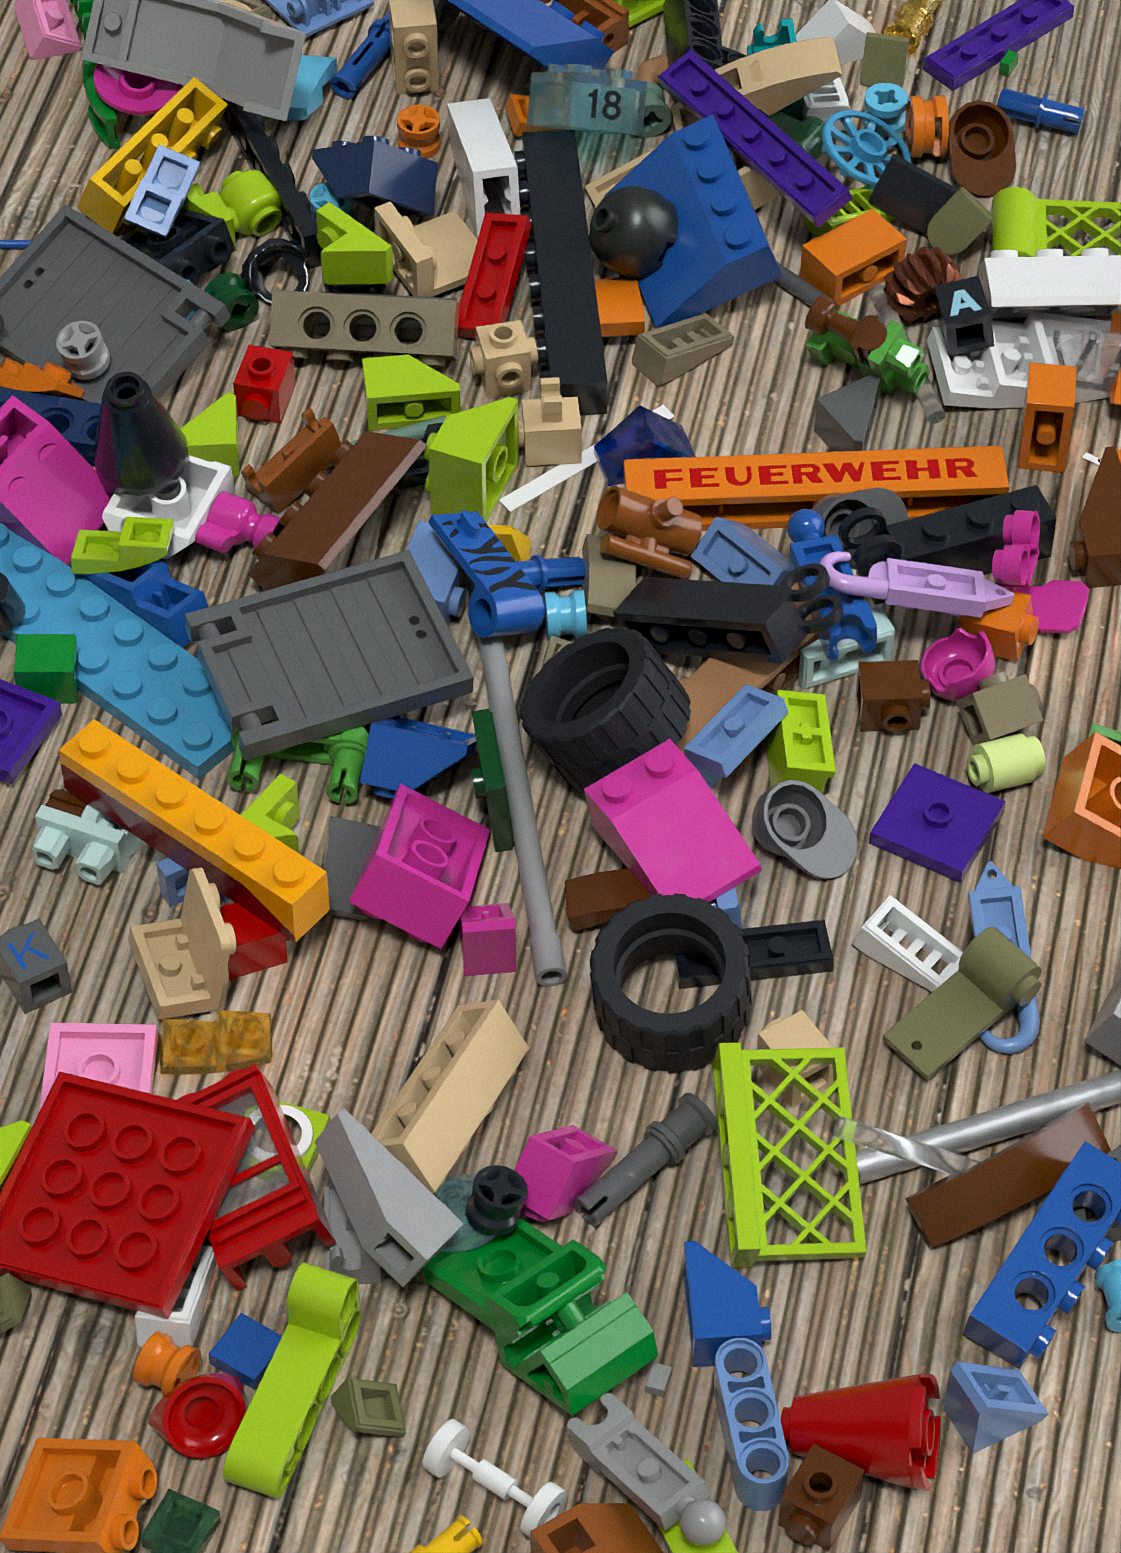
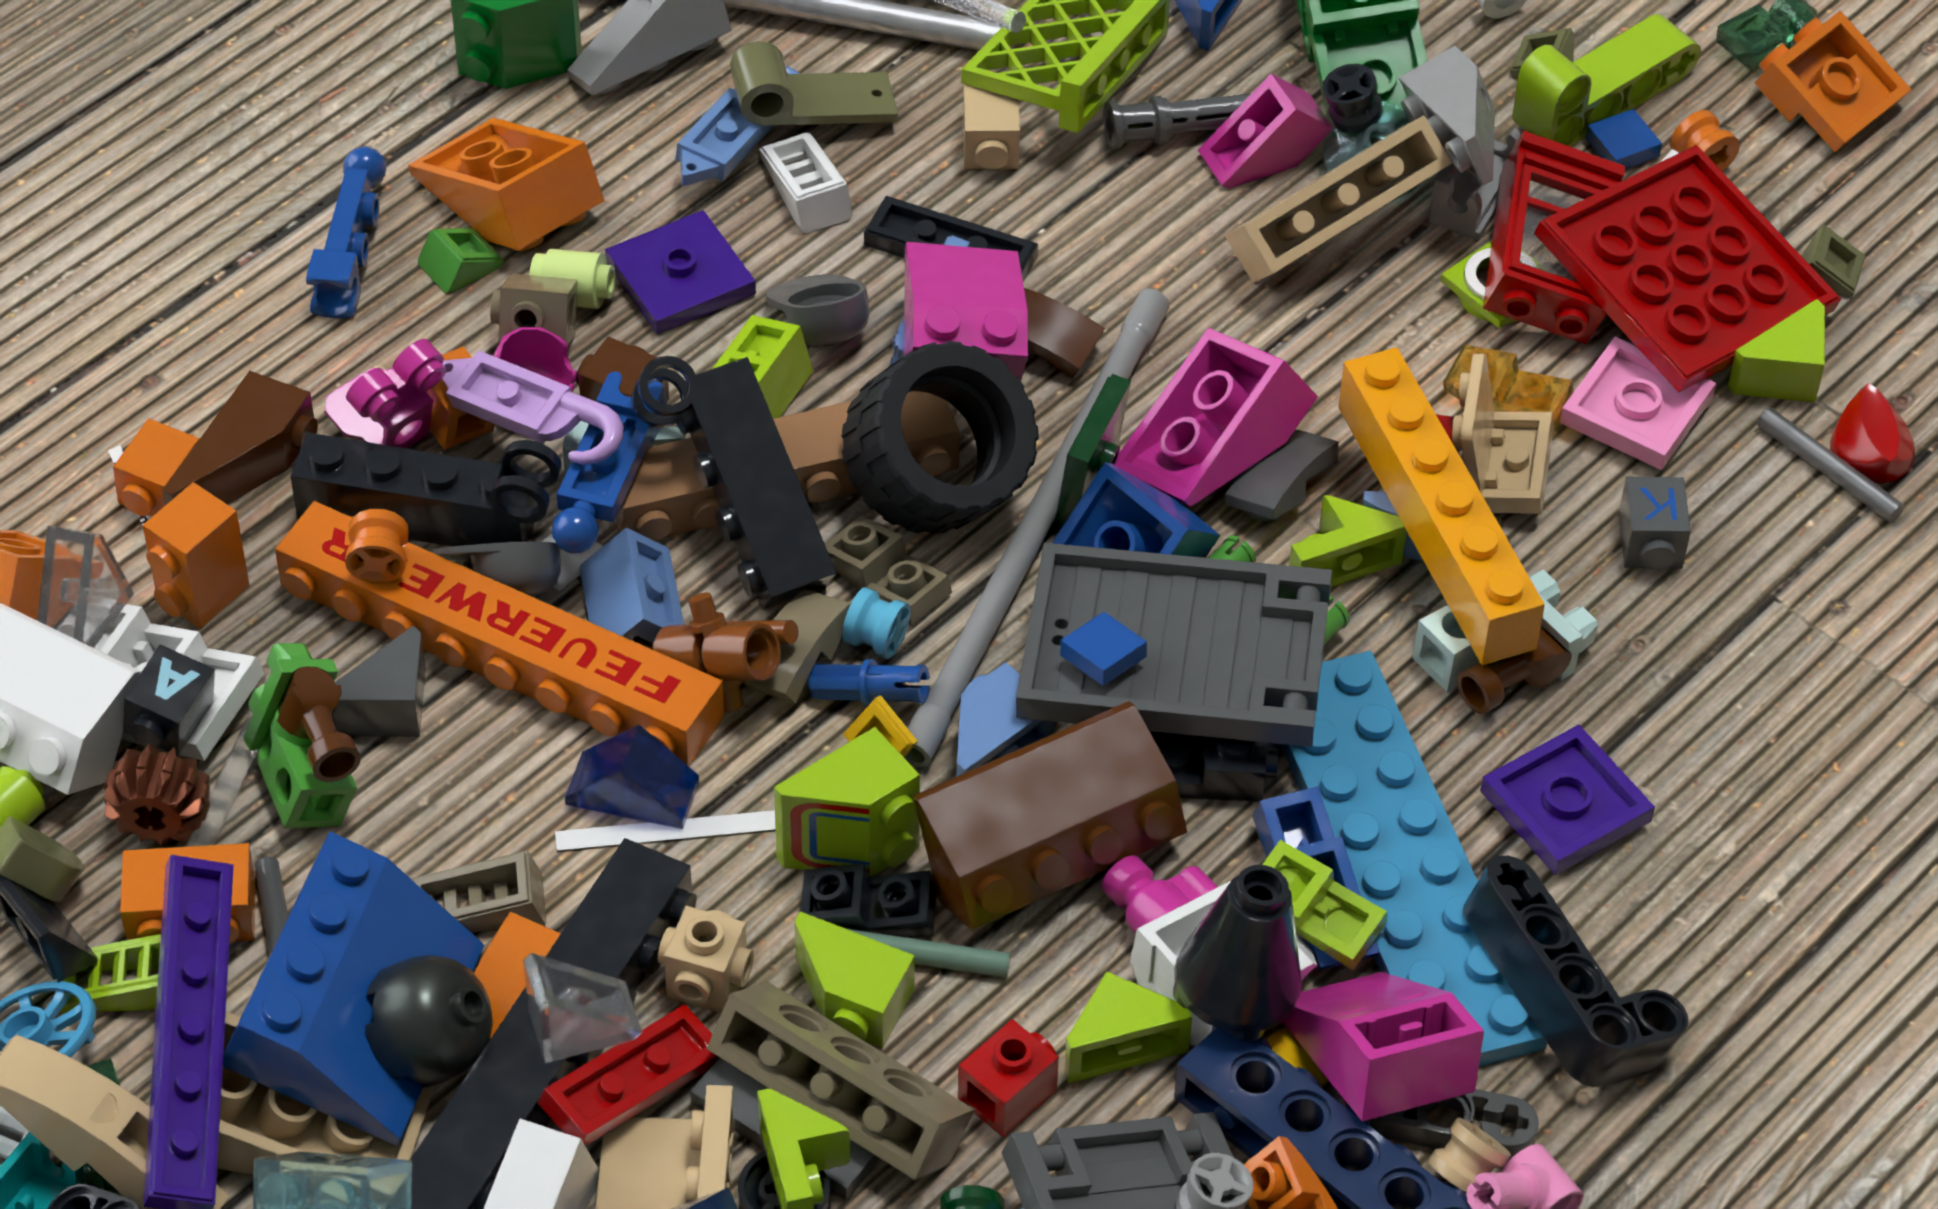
camera: 150 degrees left, 0 degrees up
(47, 665) = (1480, 820): green panel -> none
(201, 1414) = (1679, 97): red piece -> none
(294, 464) = (1047, 940): dark orange hinge -> none
(369, 601) = (1103, 648): none -> blue tile
(488, 939) = (1186, 323): dark pink slope -> none
(503, 596) = (937, 661): blue door -> none
(544, 251) = (576, 1008): none -> clear slope
(550, 427) = (725, 840): tan brick -> none
(668, 927) = (1074, 160): black tyre -> none
(734, 732) = (816, 377): medium blue panel -> none
(924, 451) = (377, 546): none -> orange wheel

